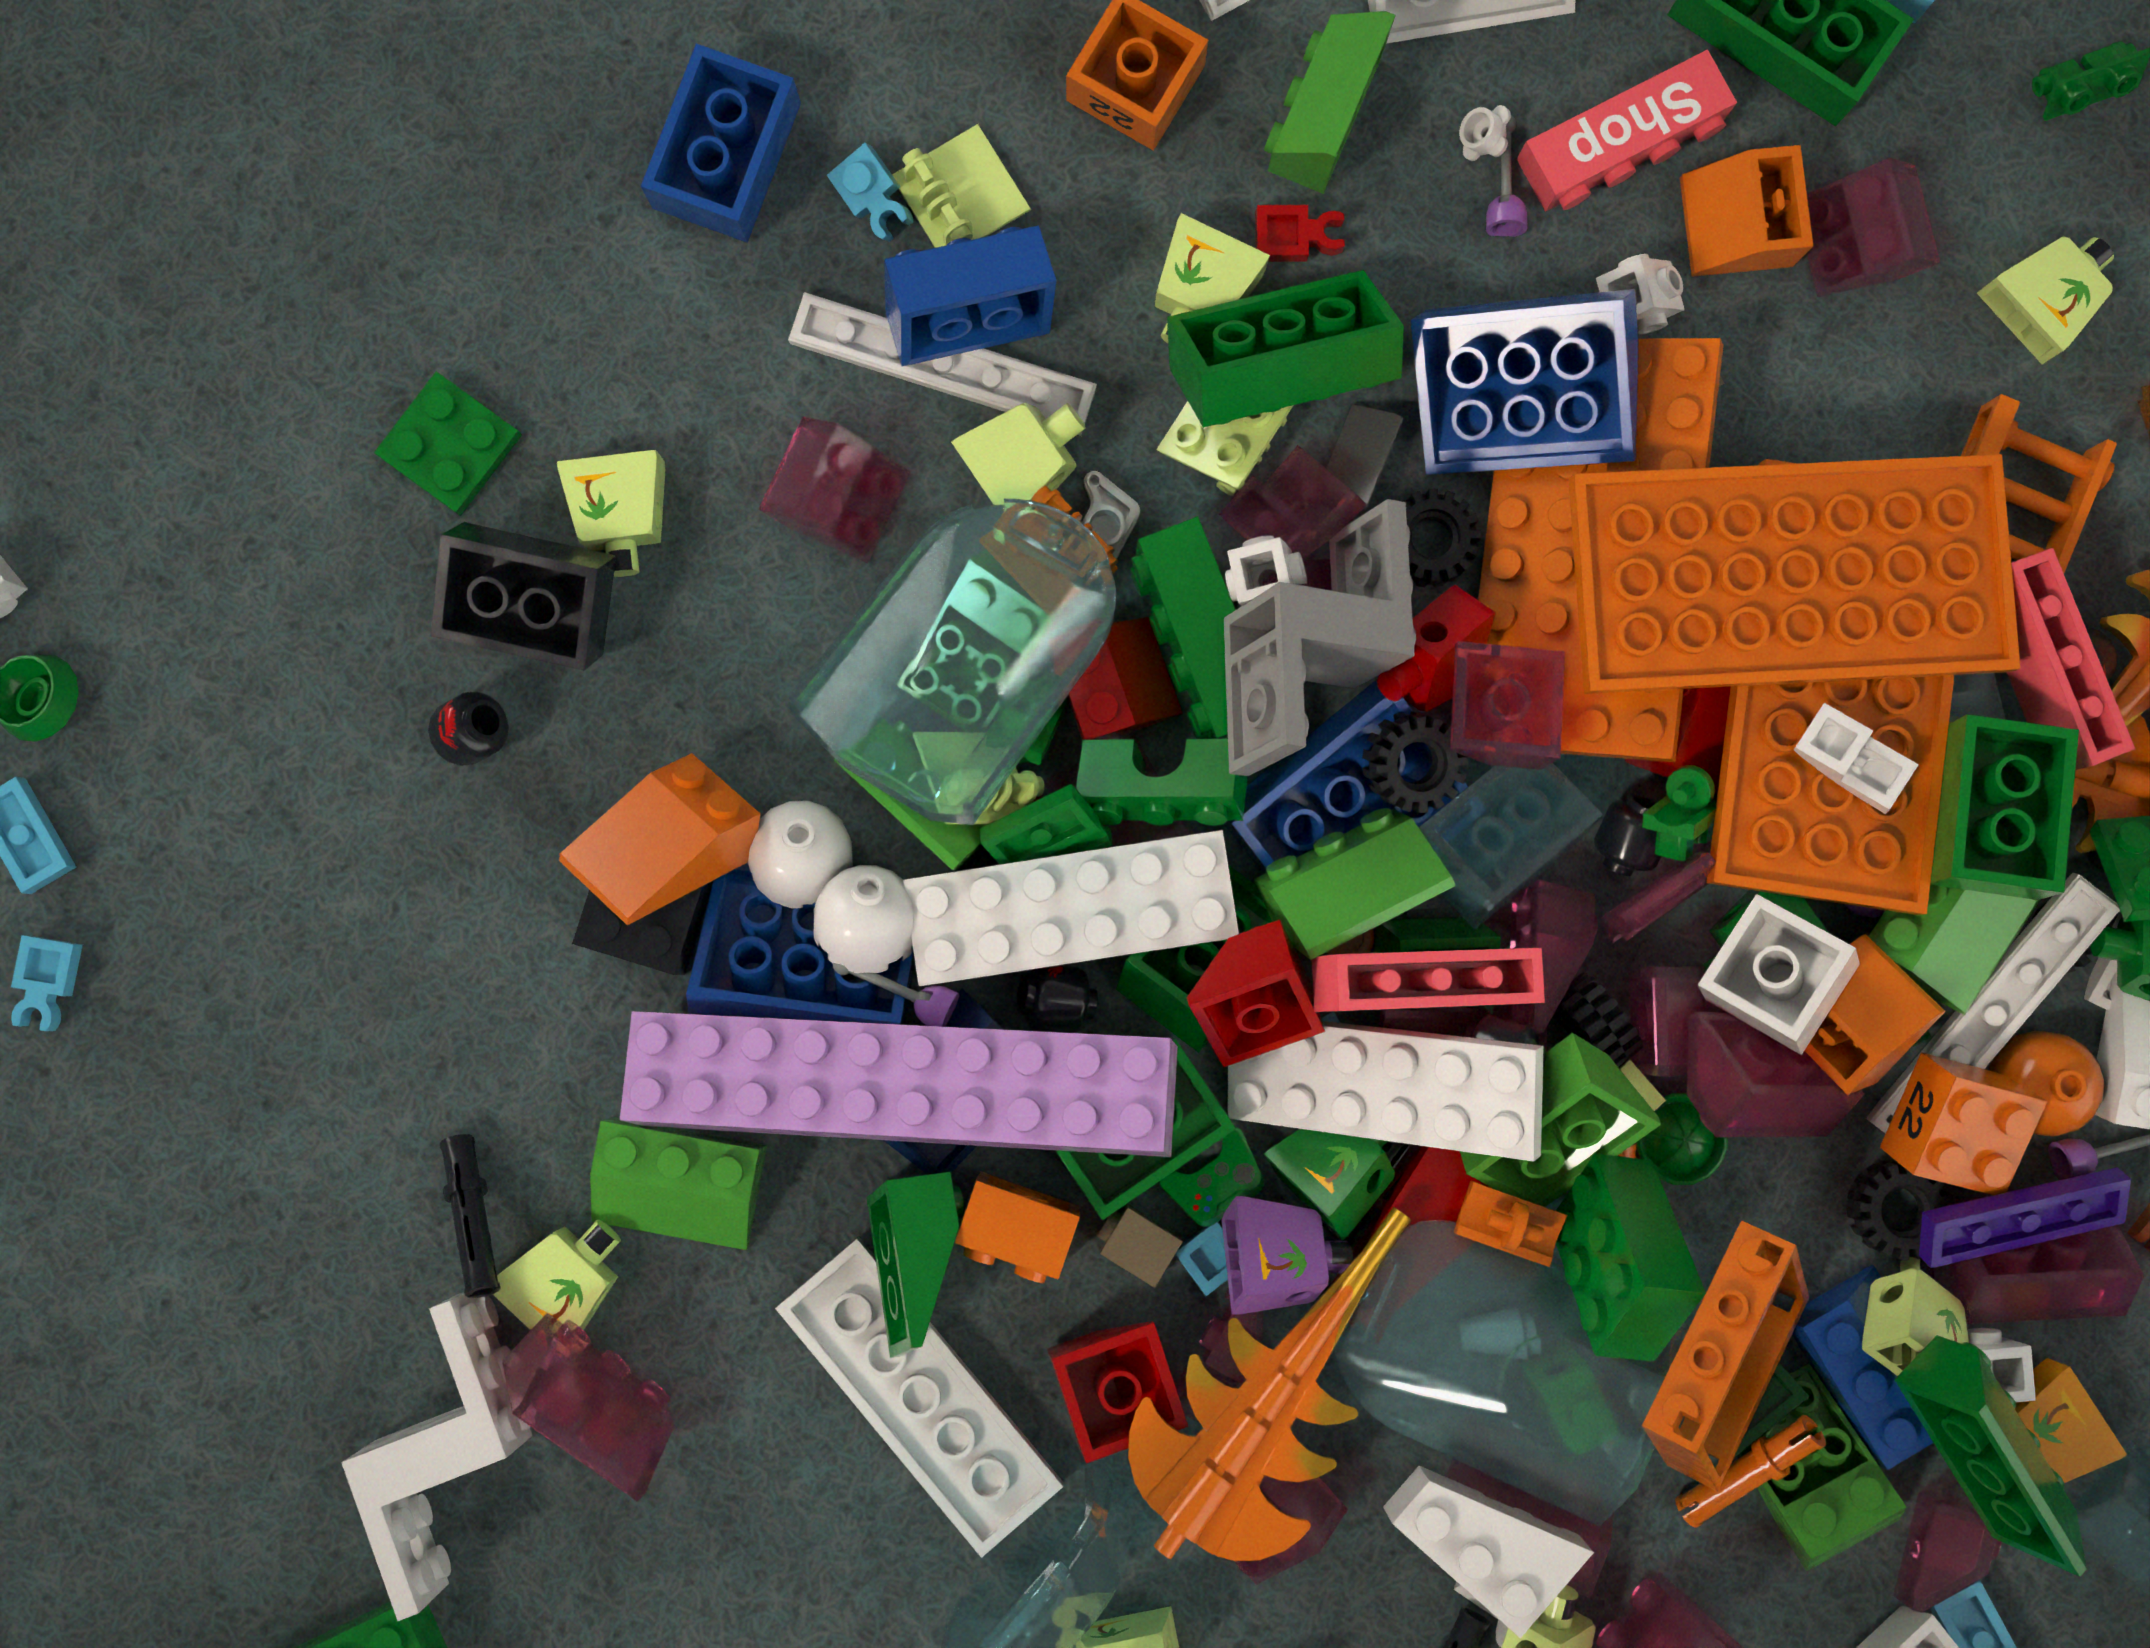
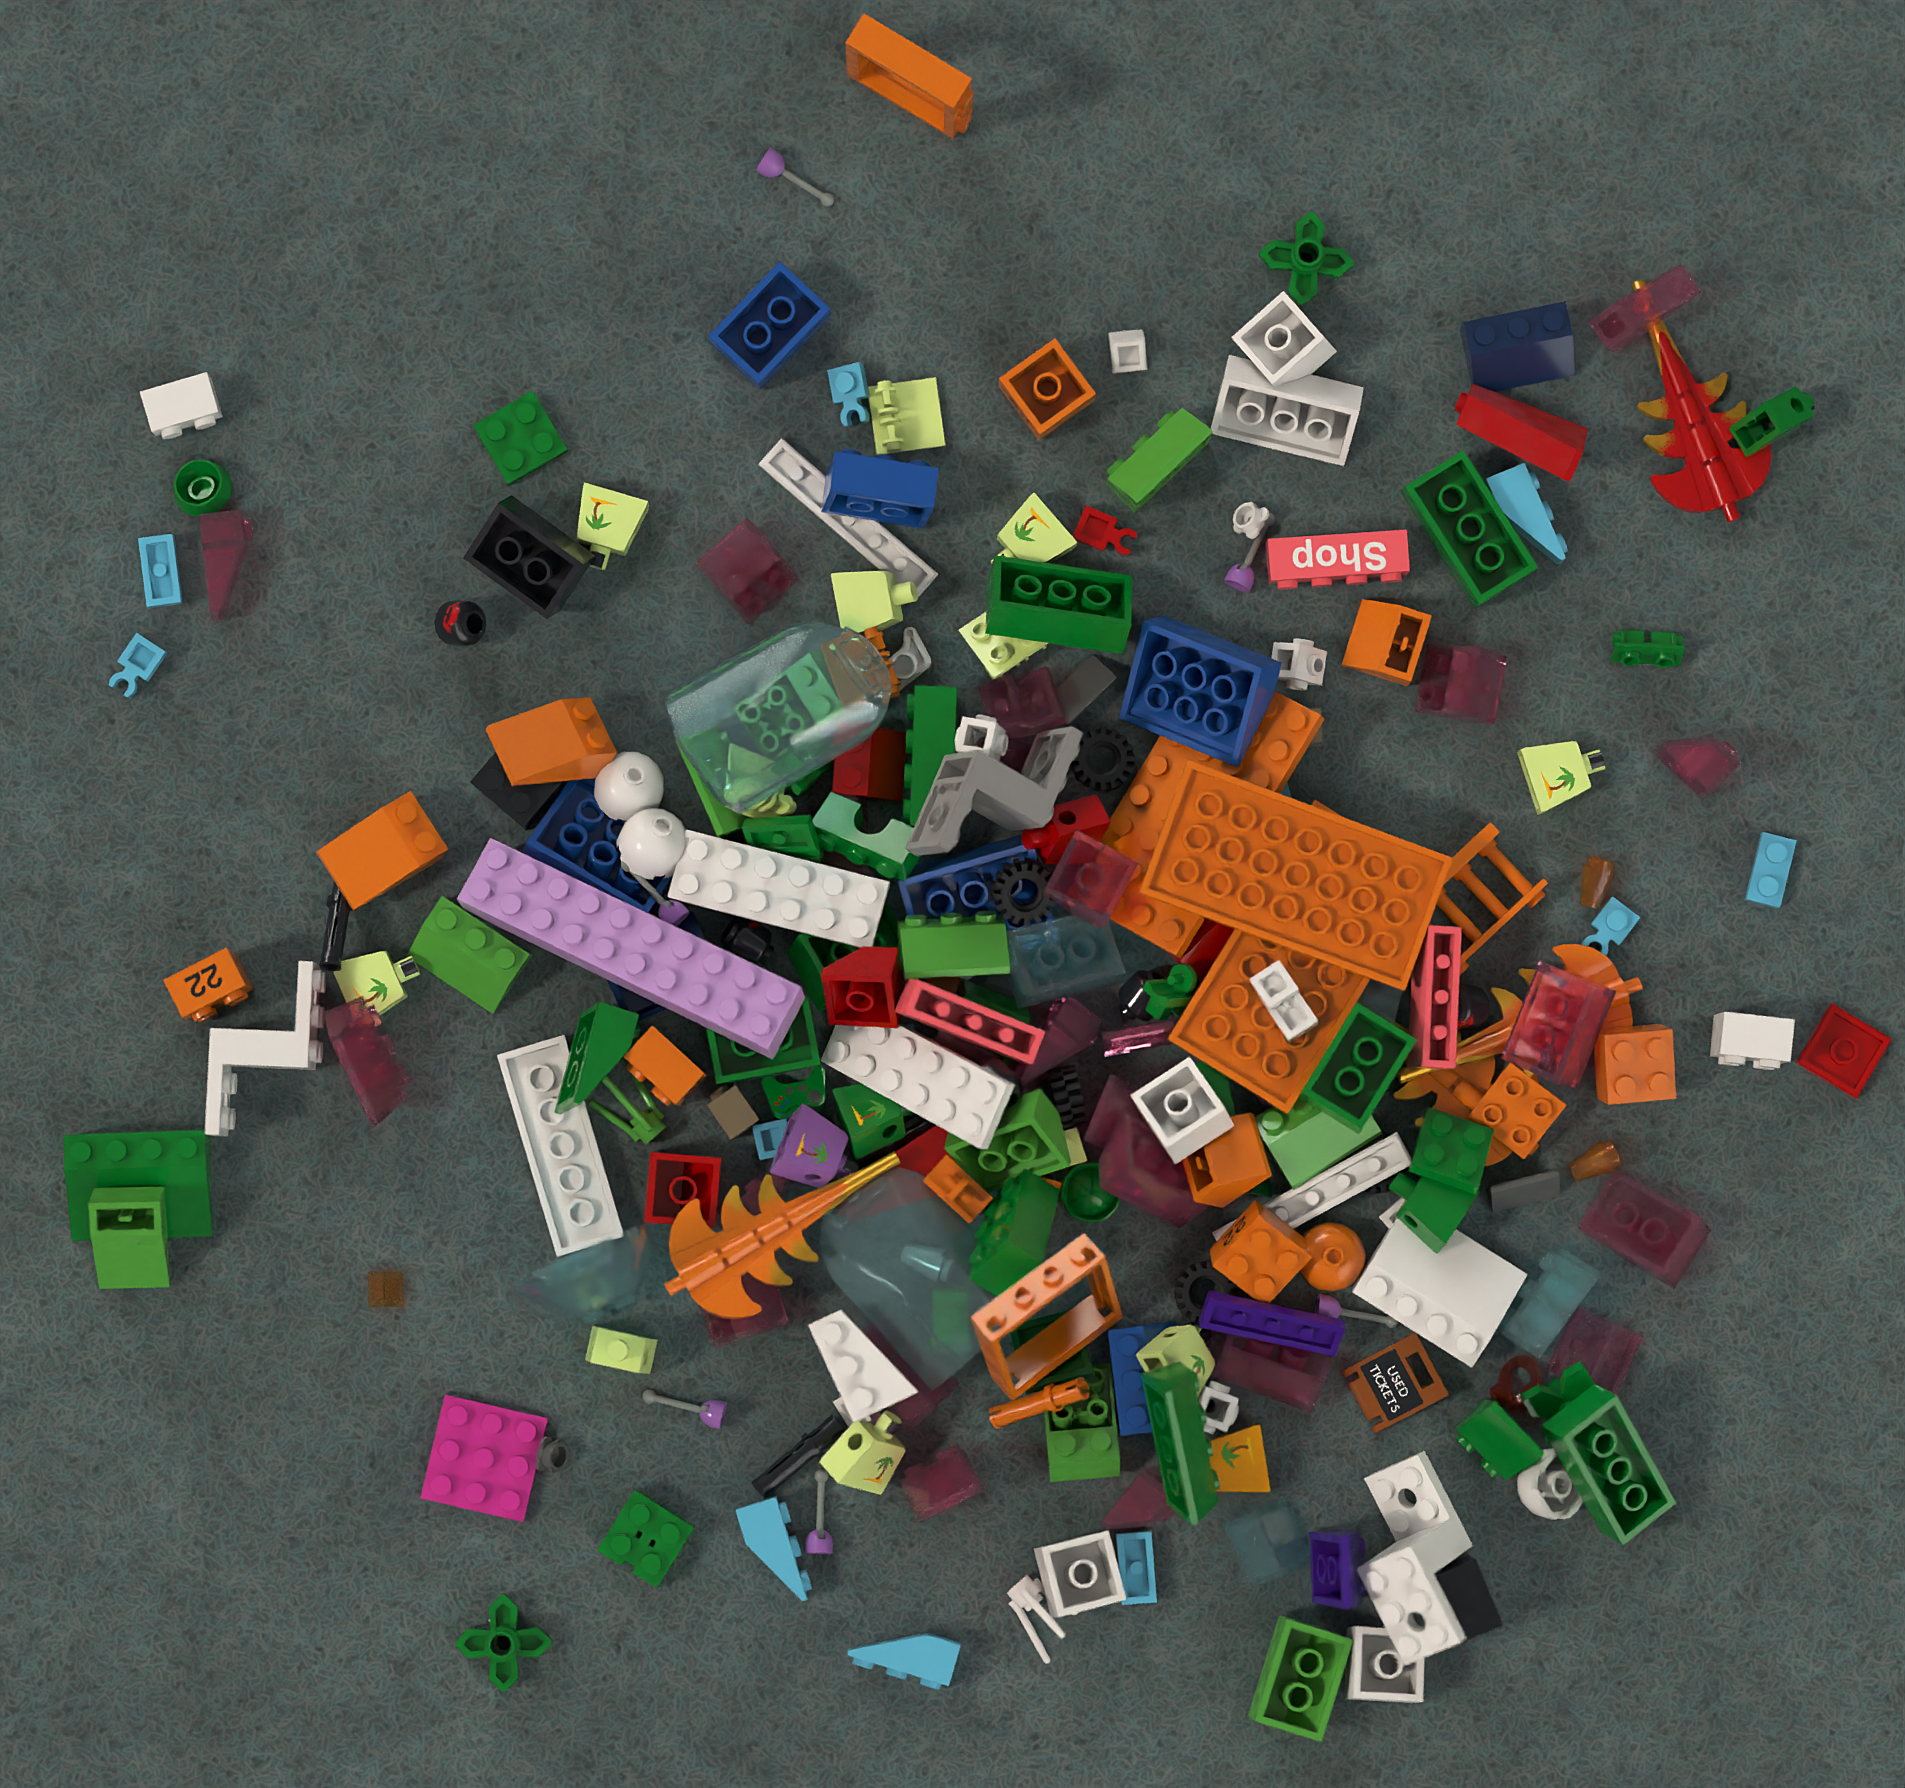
camera: 20 degrees right, 0 degrees up
(102, 777) = (224, 552): none -> clear pink slope
(323, 1391) = (209, 985): none -> orange brick
(491, 1093) = (382, 851): none -> orange slope
(1023, 1314) = (645, 1124): none -> bright green plant

